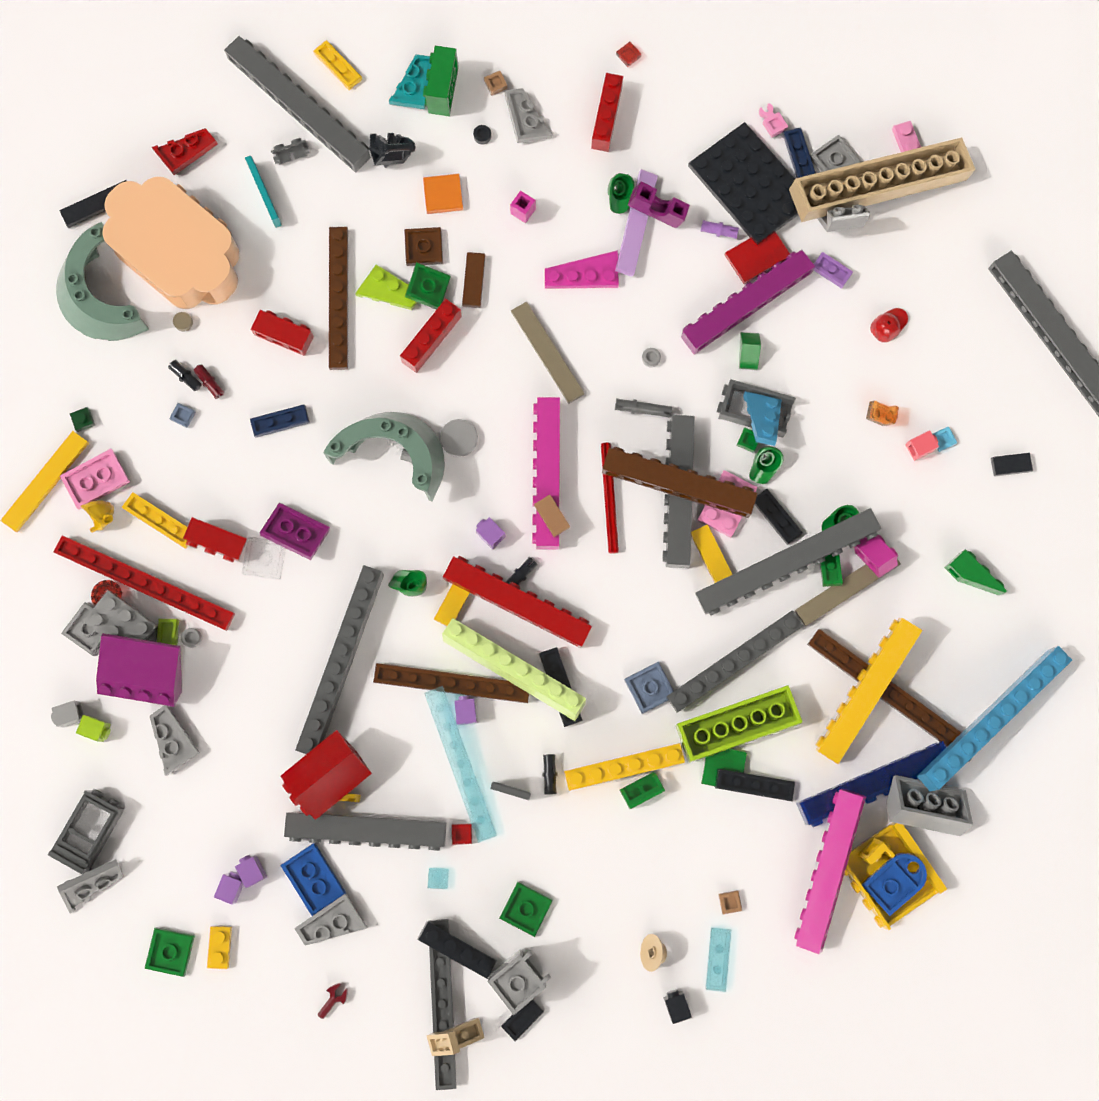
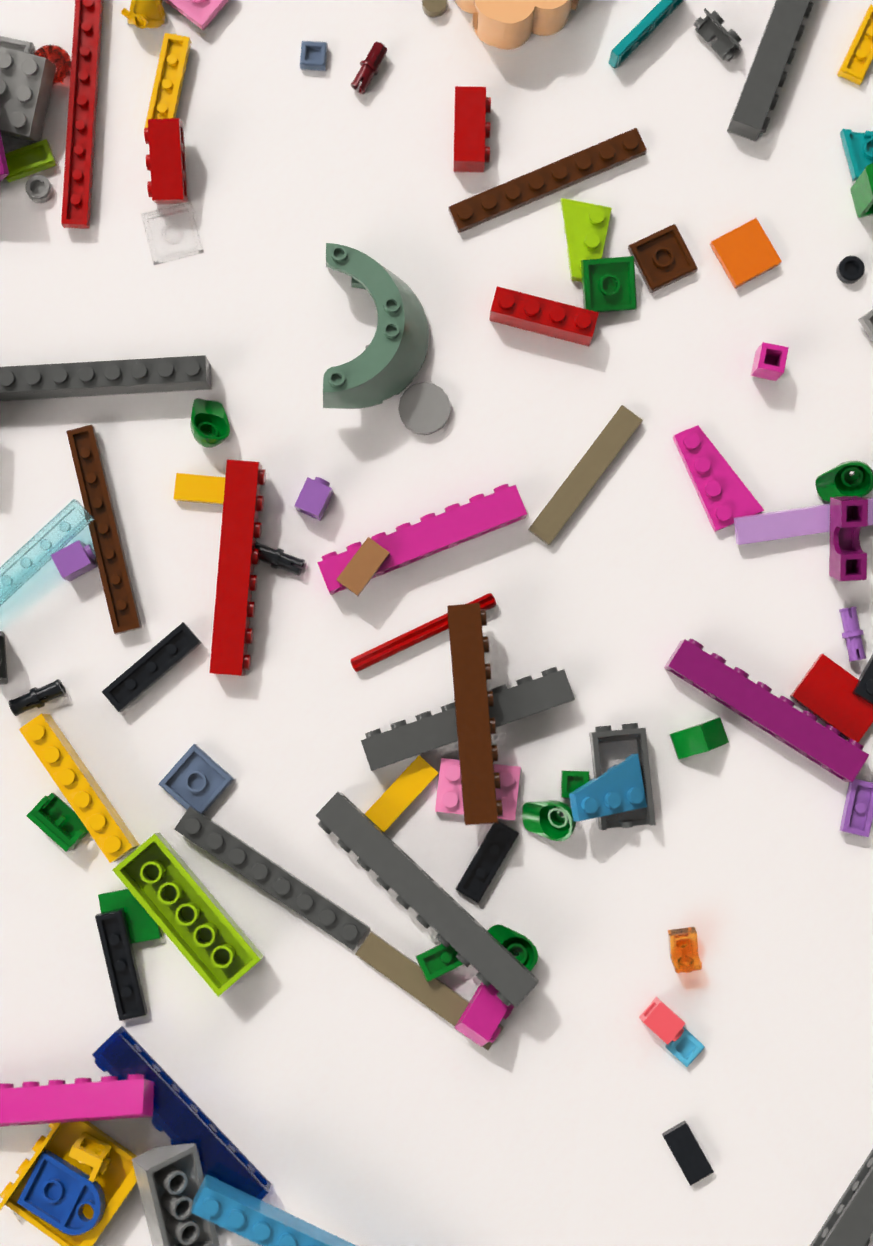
camera: 70 degrees right, 5 degrees up
(184, 375) = (365, 35): black axle -> none
(279, 421) = (355, 177): dark blue tile -> none
(294, 531) = (218, 254): magenta plate -> none
(390, 151) = (773, 166): black piece -> none
(473, 280) = (644, 340): reddish brown tile -> none
(514, 669) = (145, 598): yellowish green brick -> none
(643, 408) = (561, 629): dark grey pin -> none
(651, 357) = (635, 612): light grey tile -> none
(868, 690) = (297, 1068): yellow brick -> none
(886, 332) = (827, 921): red cap -> none
(893, 695) = (311, 1088): reddish brown plate -> none
(970, 572) = (514, 1142): green slope -> none

